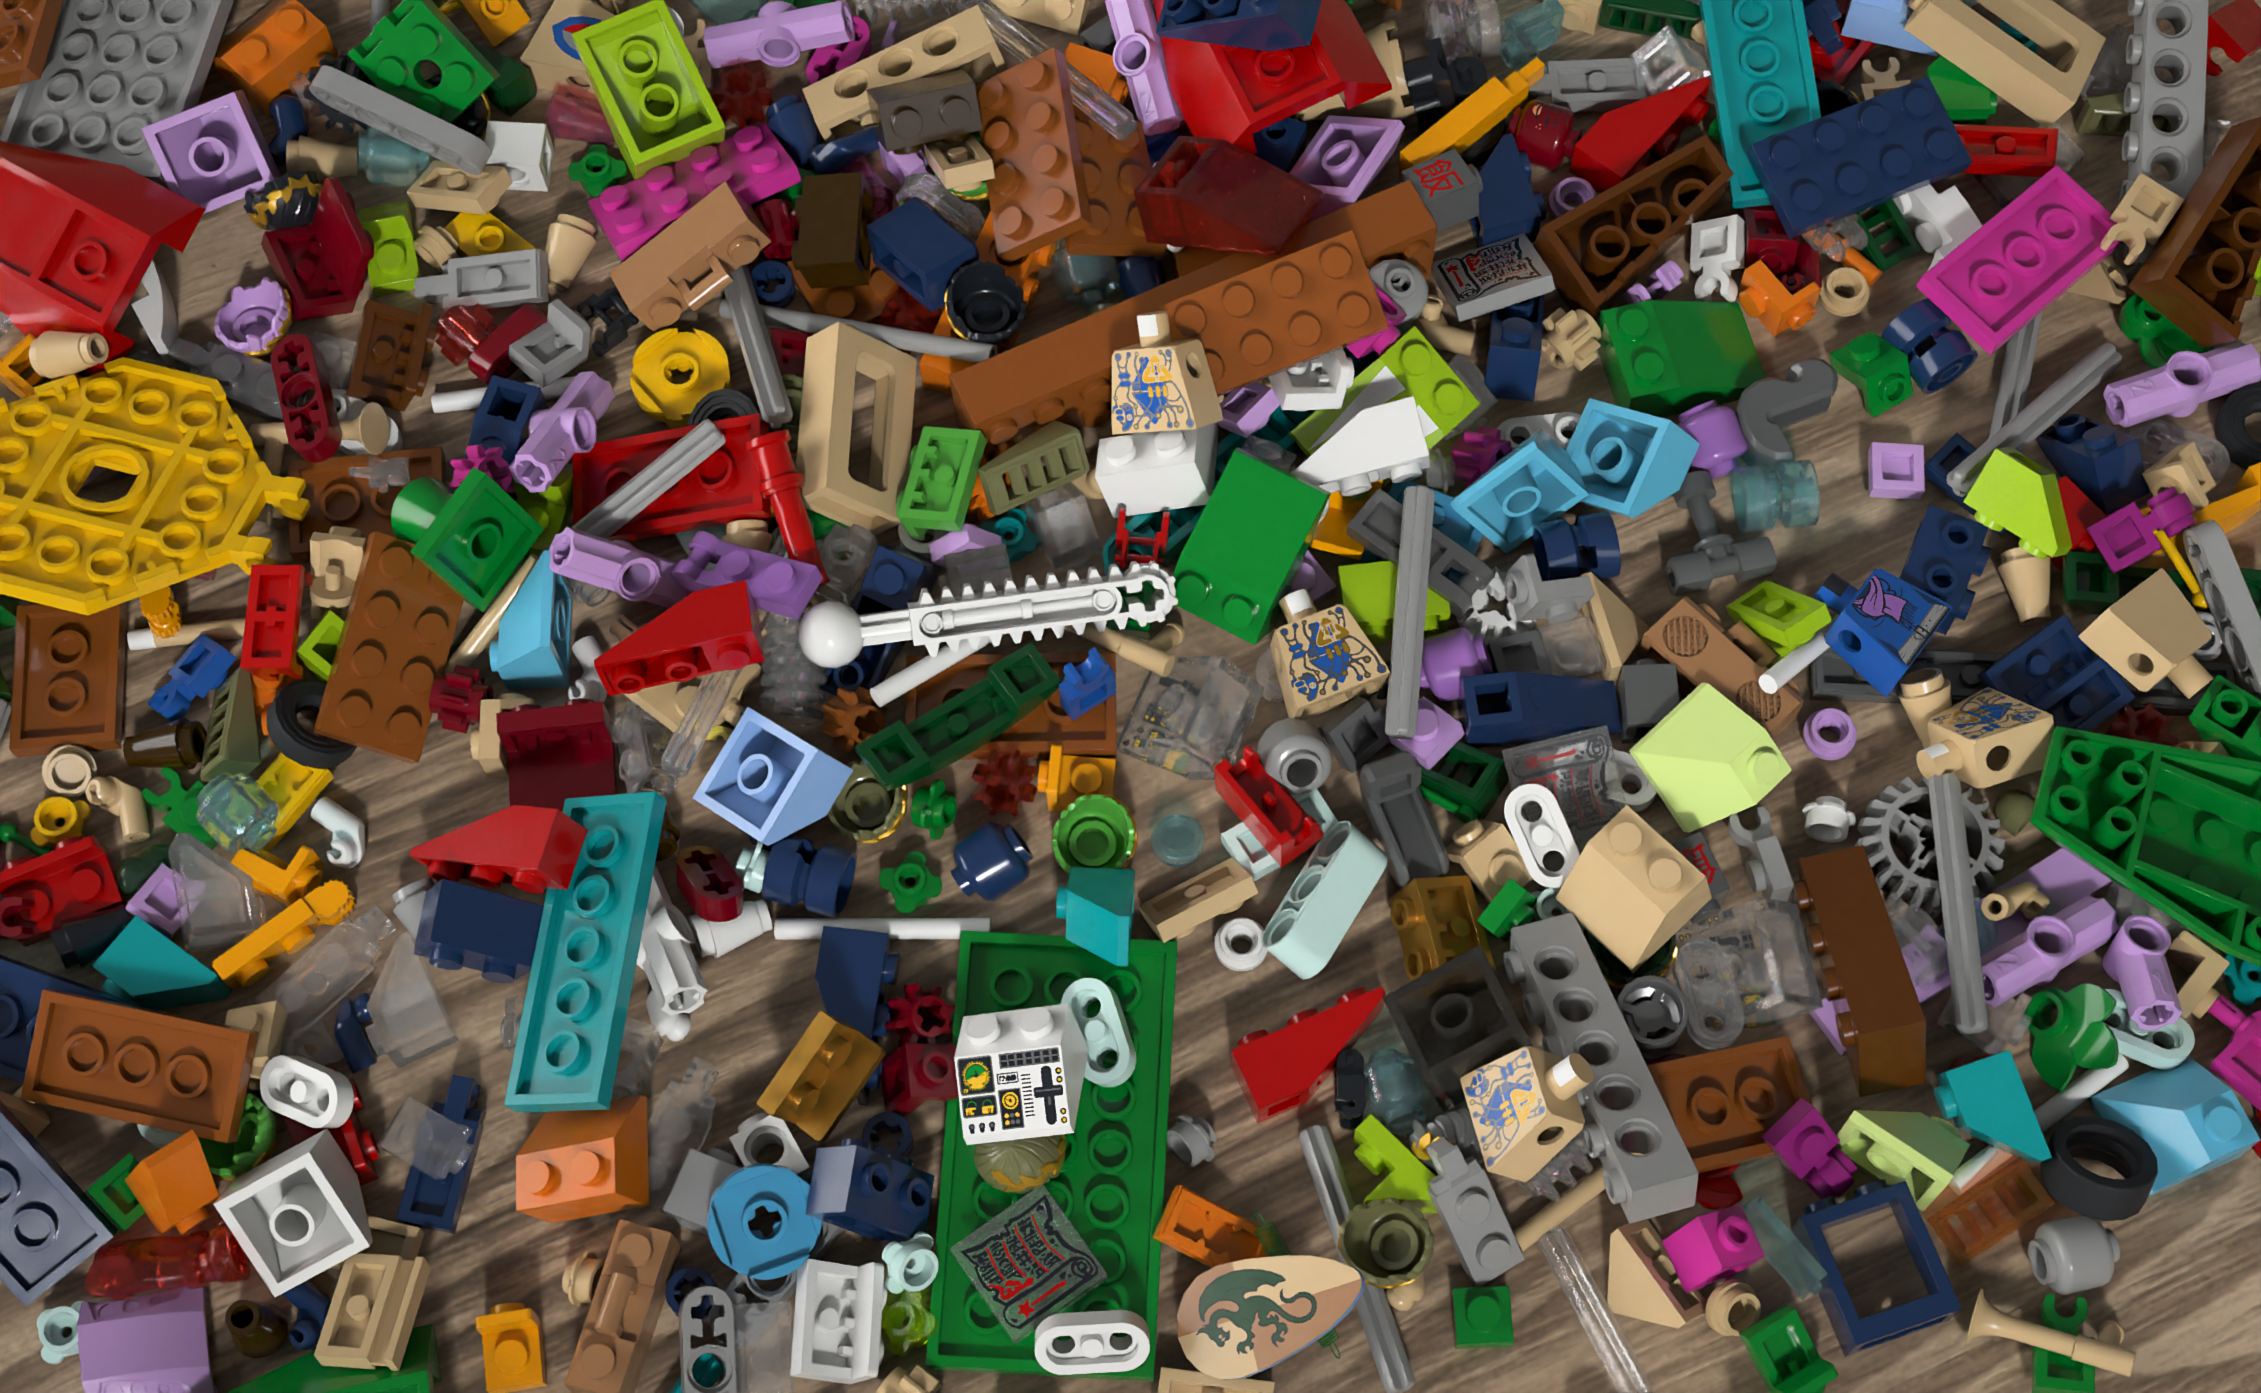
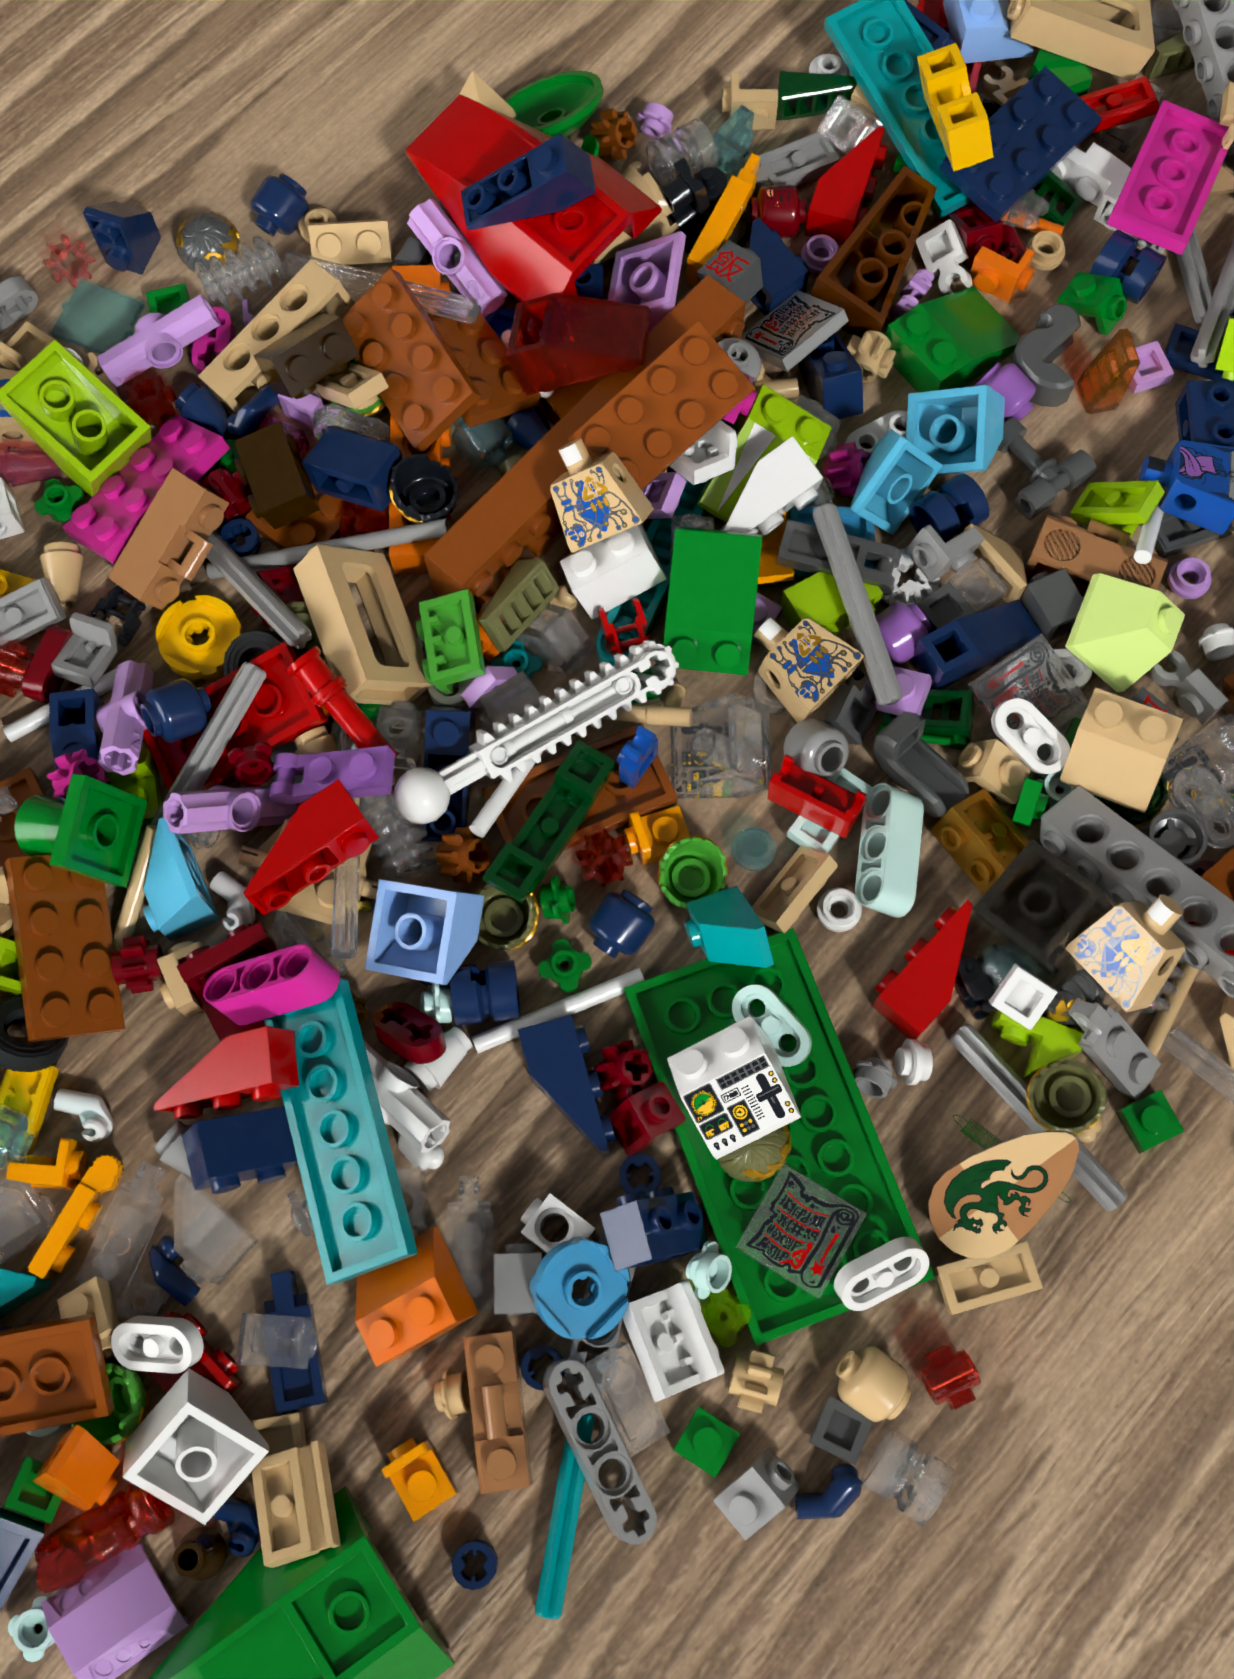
camera: 25 degrees left, 5 degrees up
(585, 771) = (271, 984): none -> dark pink beam
(614, 443) = (175, 710): none -> dark blue head
(670, 532) = (252, 764): none -> dark red plate
(822, 1076) = (578, 1153): pearl gold bracket -> none
(1208, 1230) = (924, 1144): orange plate -> none
(1243, 1140) = (913, 1062): none -> white plate
(1386, 1111) = (1023, 996): none -> white plate
(1757, 496) = (1072, 417): clear light blue wheel -> none
(1783, 96) = (953, 107): none -> yellow arch
(1841, 461) = (1109, 374): none -> clear orange slope

